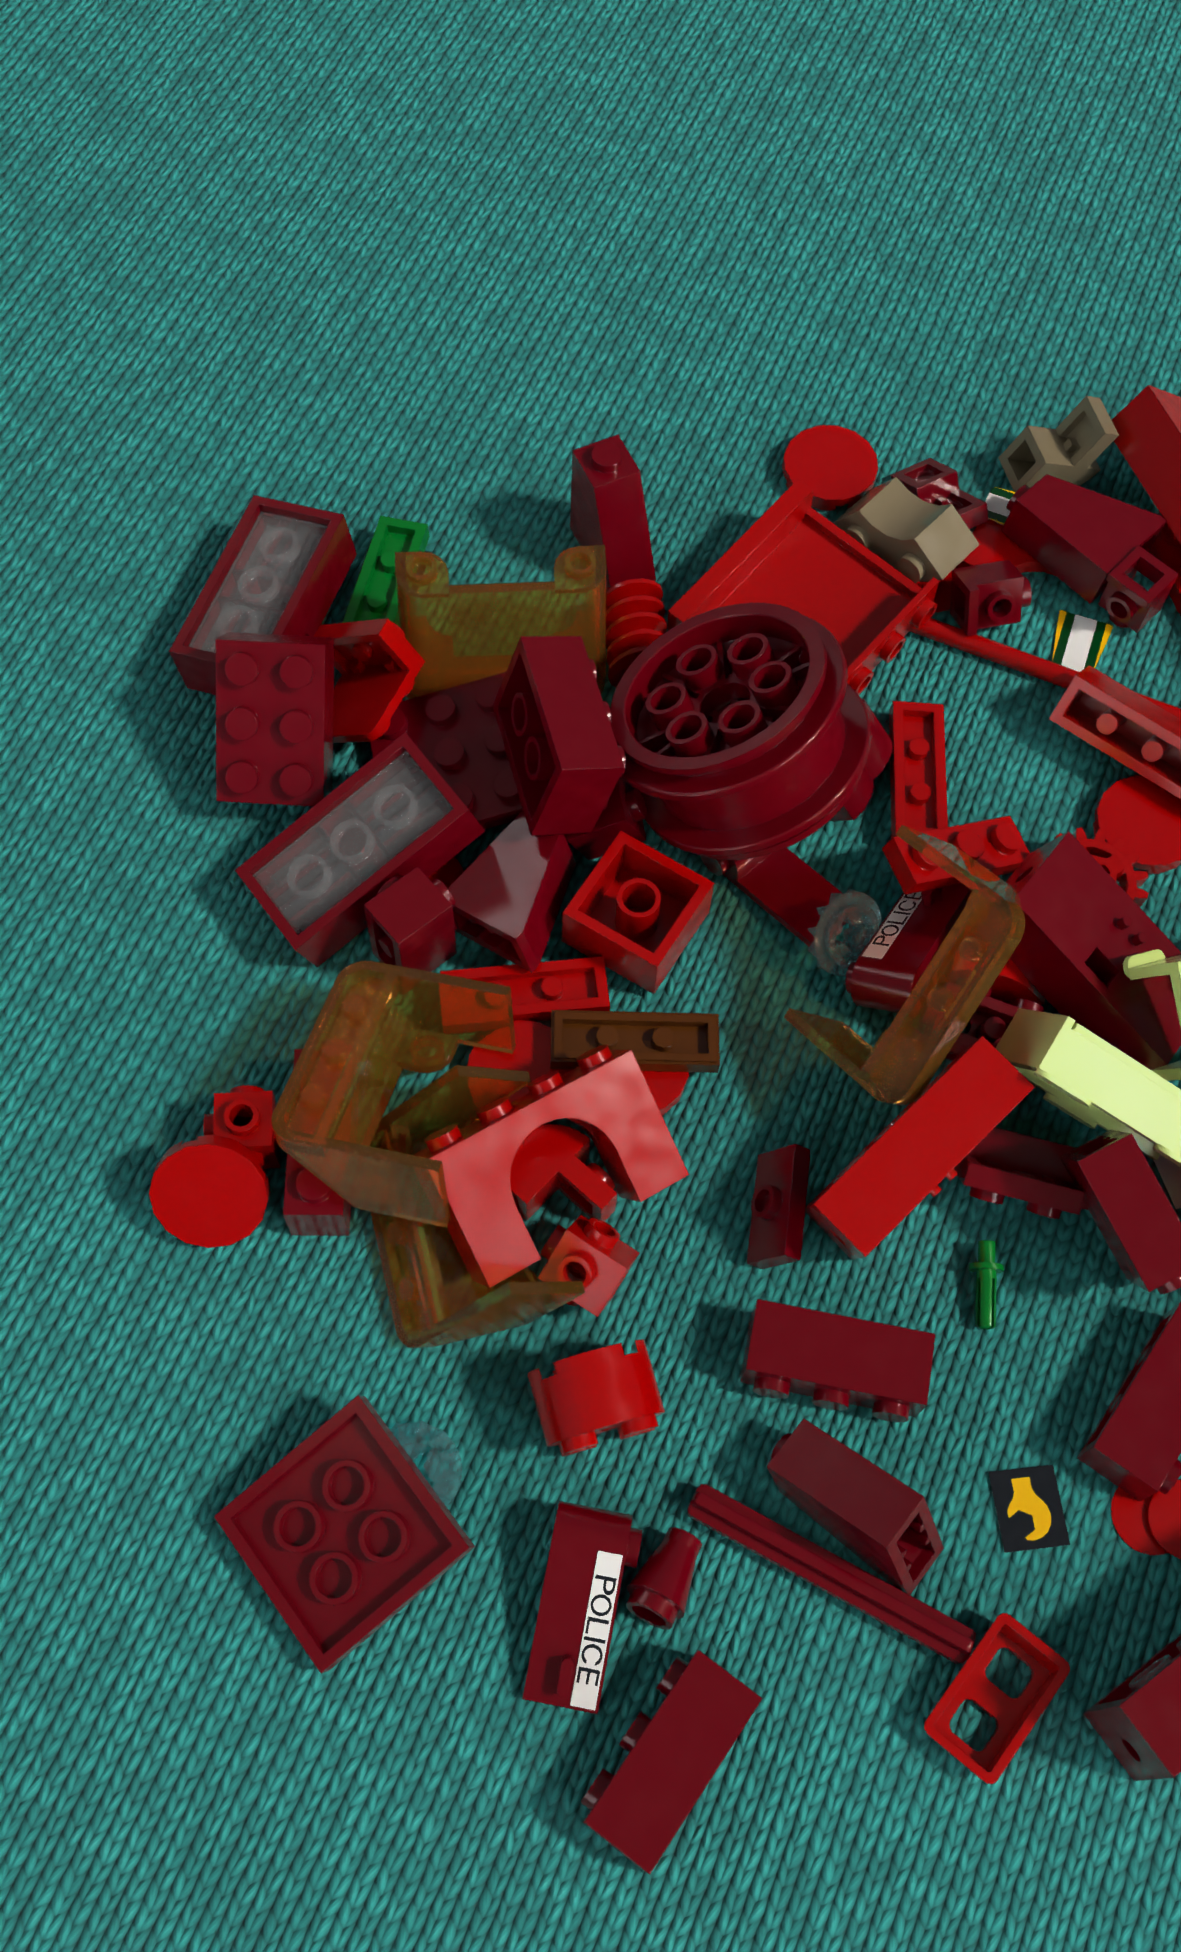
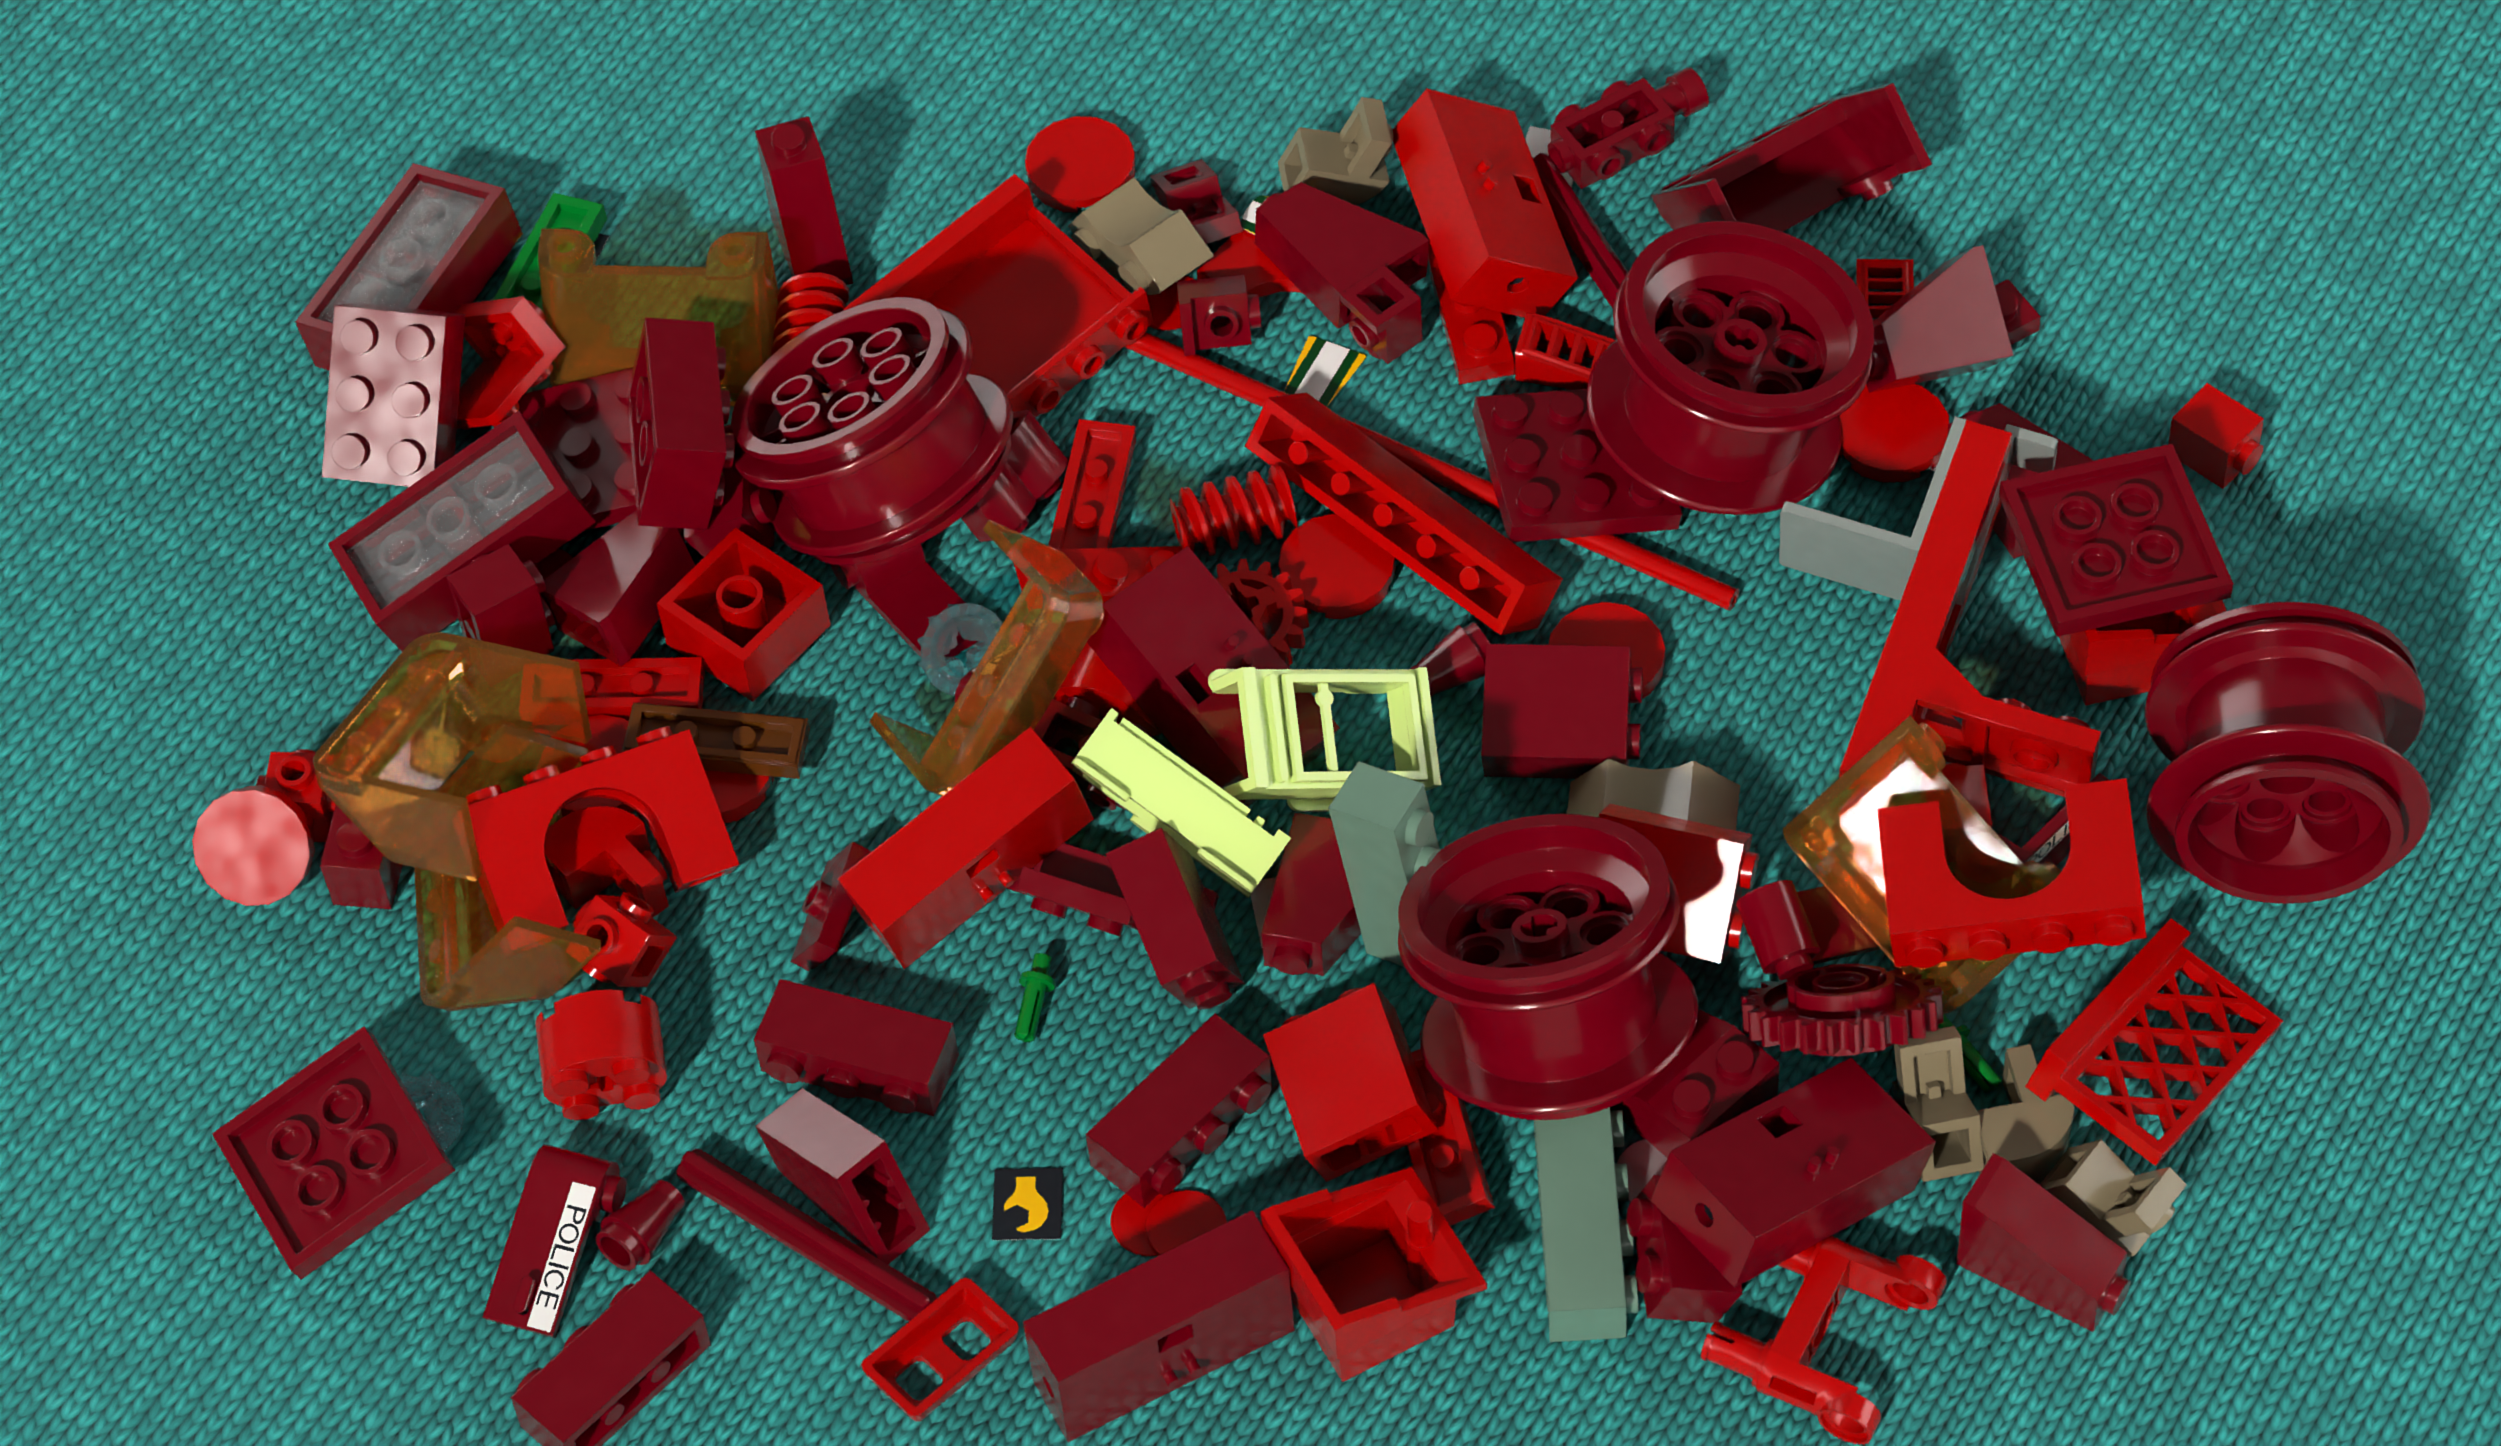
camera: 15 degrees right, 10 degrees down
(1054, 779) = (1234, 510): none -> red piece

